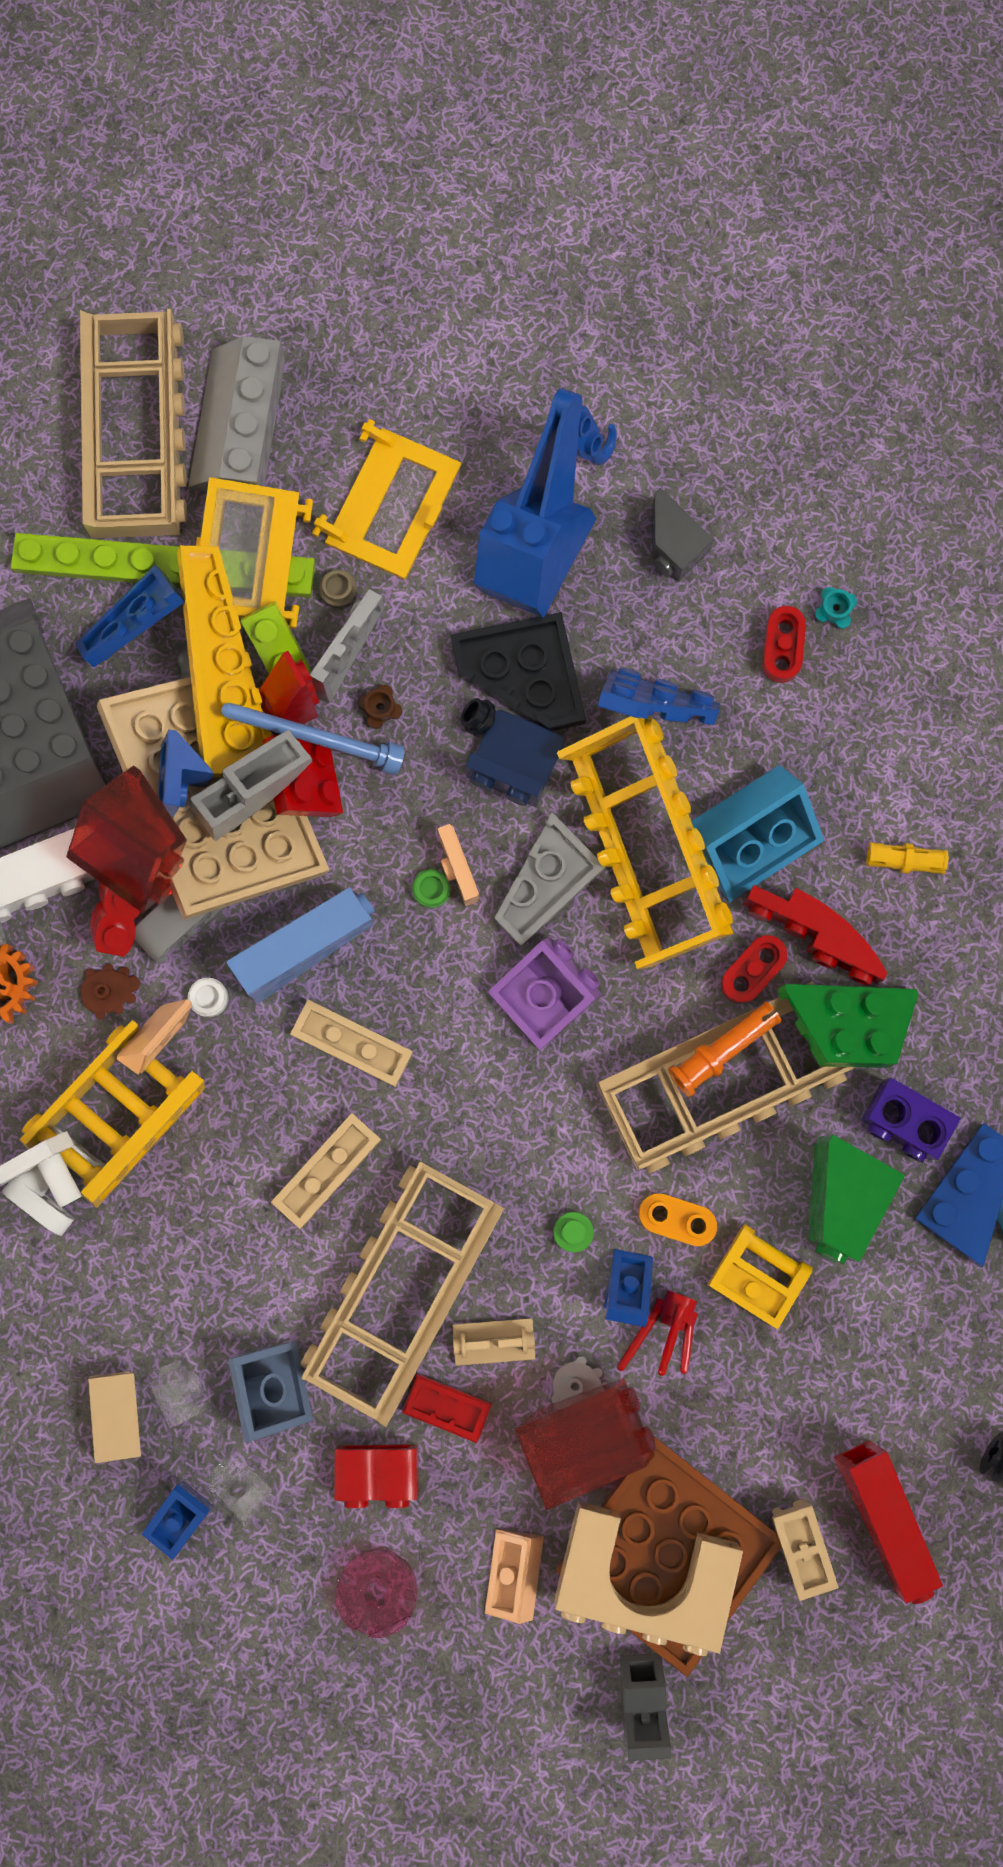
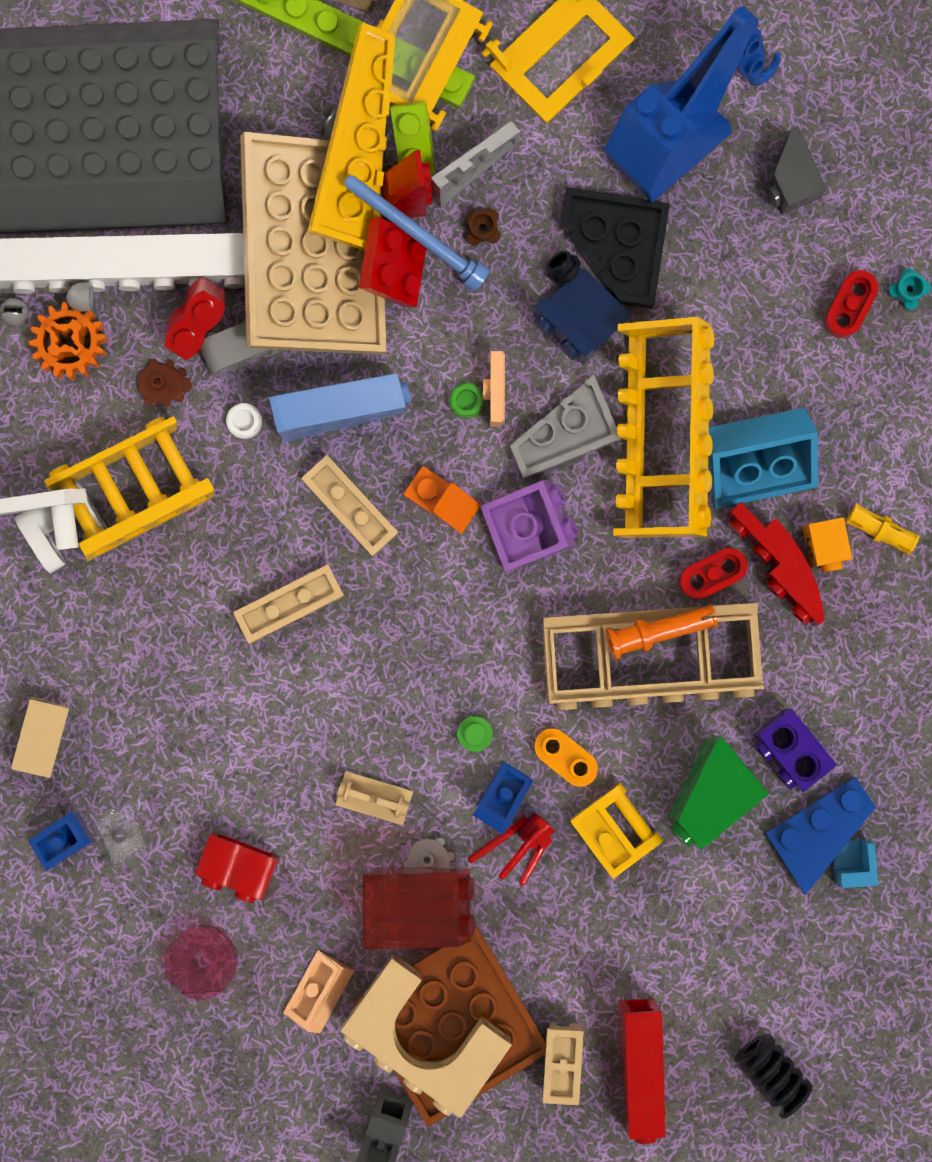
camera: 20 degrees right, 5 degrees up
(129, 841) = (225, 263): clear red slope -> none
(133, 614) = (300, 67): blue wing -> none
(154, 1035) = (187, 436): light nougat slope -> none
(177, 769) = (288, 218): blue slope -> none
(179, 1393) = (99, 739): clear brick -> none
(249, 784) = (345, 253): light grey slope -> none
(270, 1390) = (175, 765): sand blue slope -> none
(338, 588) = (485, 110): dark tan plate -> none
(355, 1286) = (251, 731): tan window -> none
(445, 1000) = (442, 499): none -> orange slope
(447, 1408) = (314, 836): red plate -> none
(638, 698) = (705, 303): blue plate -> none
(852, 1023) = (777, 650): green wing -> none
(858, 894) = (827, 544): none -> light orange brick

